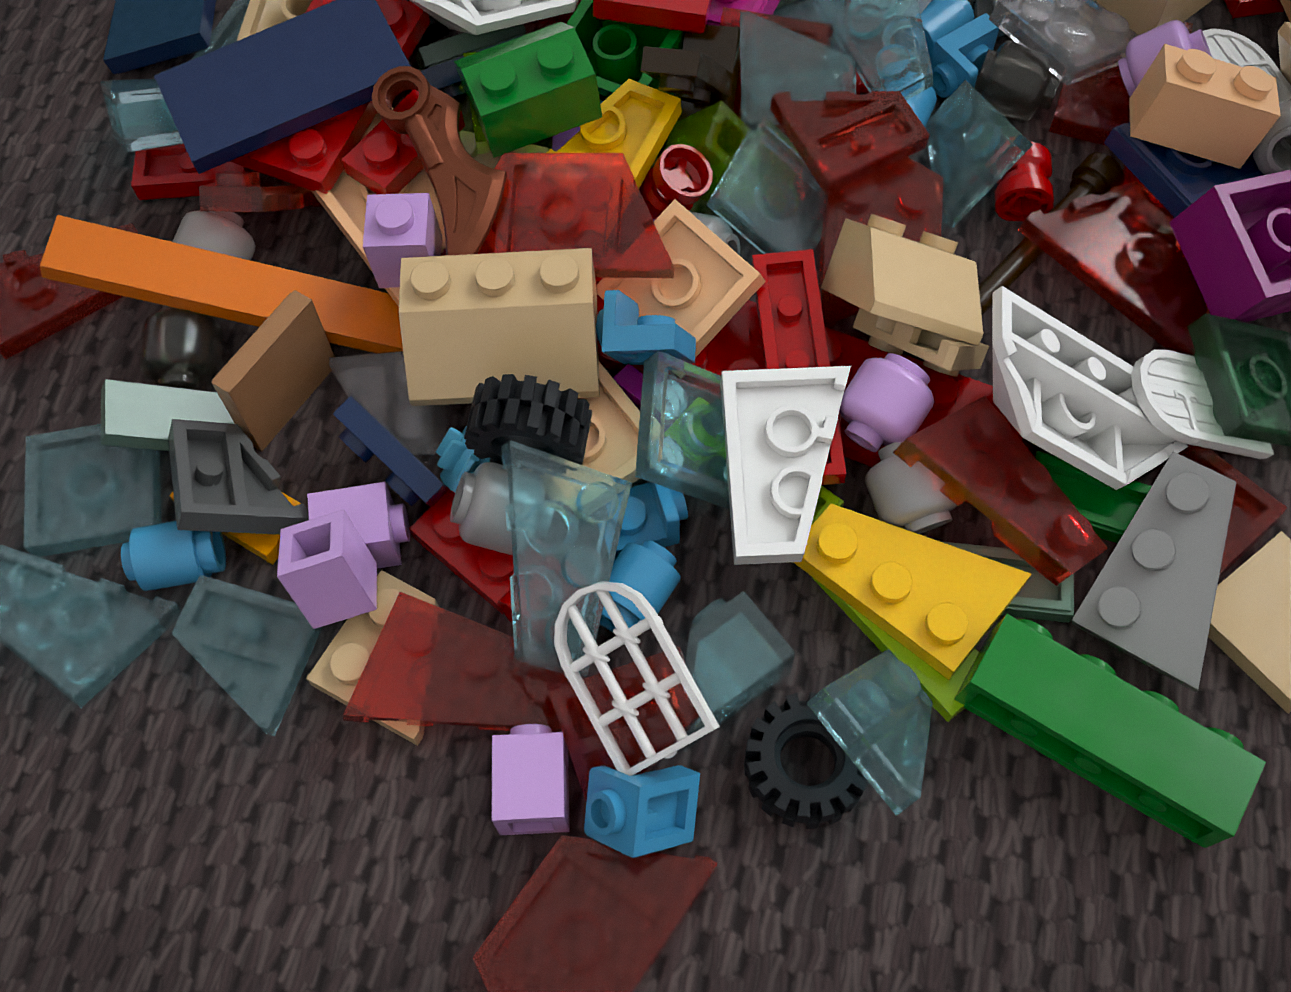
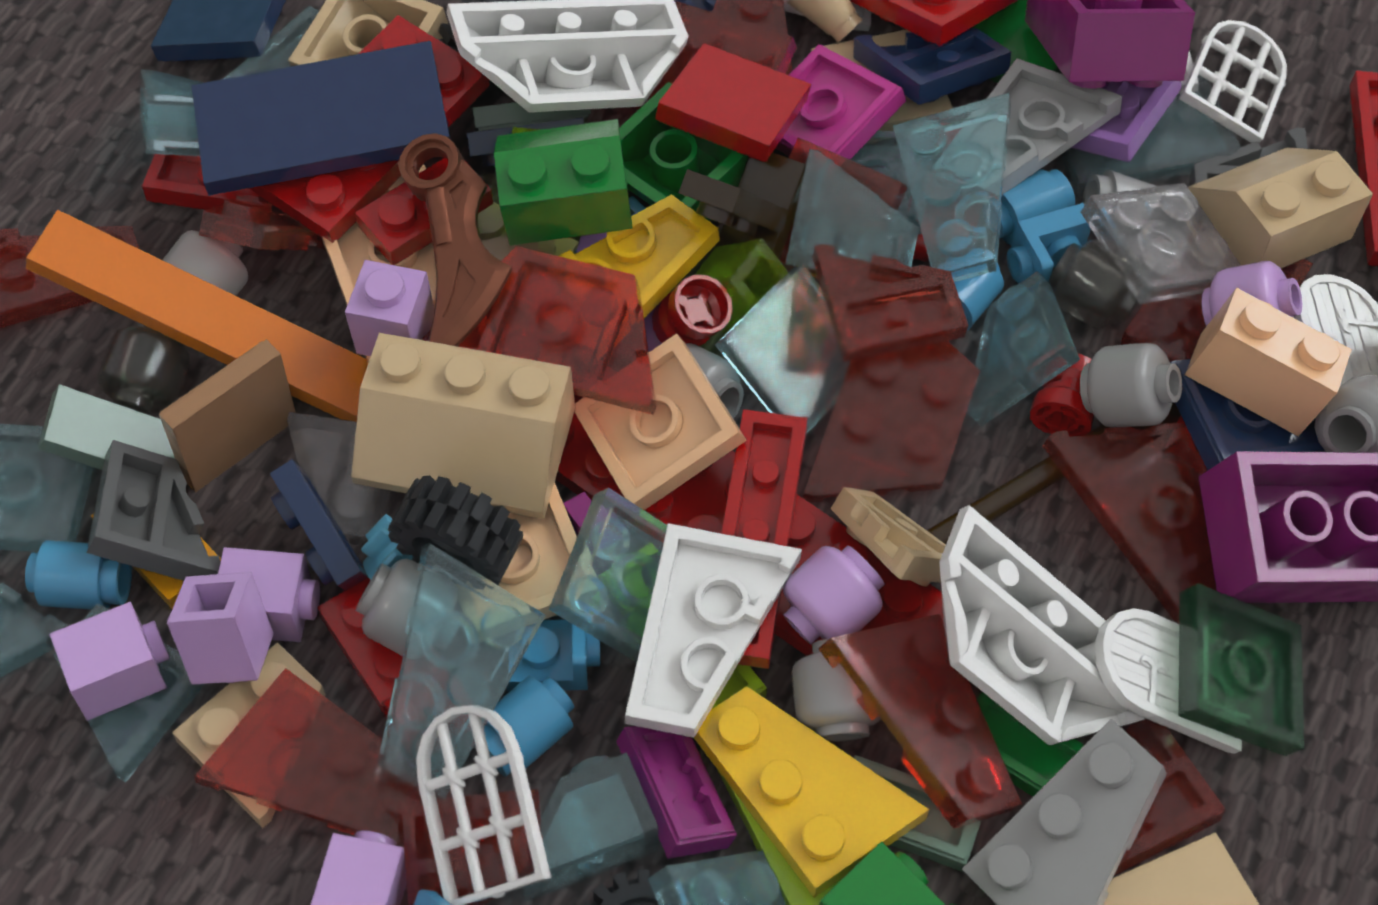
camera: 10 degrees right, 5 degrees down
(229, 625) = (110, 659): none -> lavender brick
(636, 338) = (592, 467): dark azure bracket -> none
(797, 613) = (678, 791): none -> magenta plate
(906, 278) = (893, 472): tan slope -> none
(1086, 156) = (1130, 385): none -> light grey head

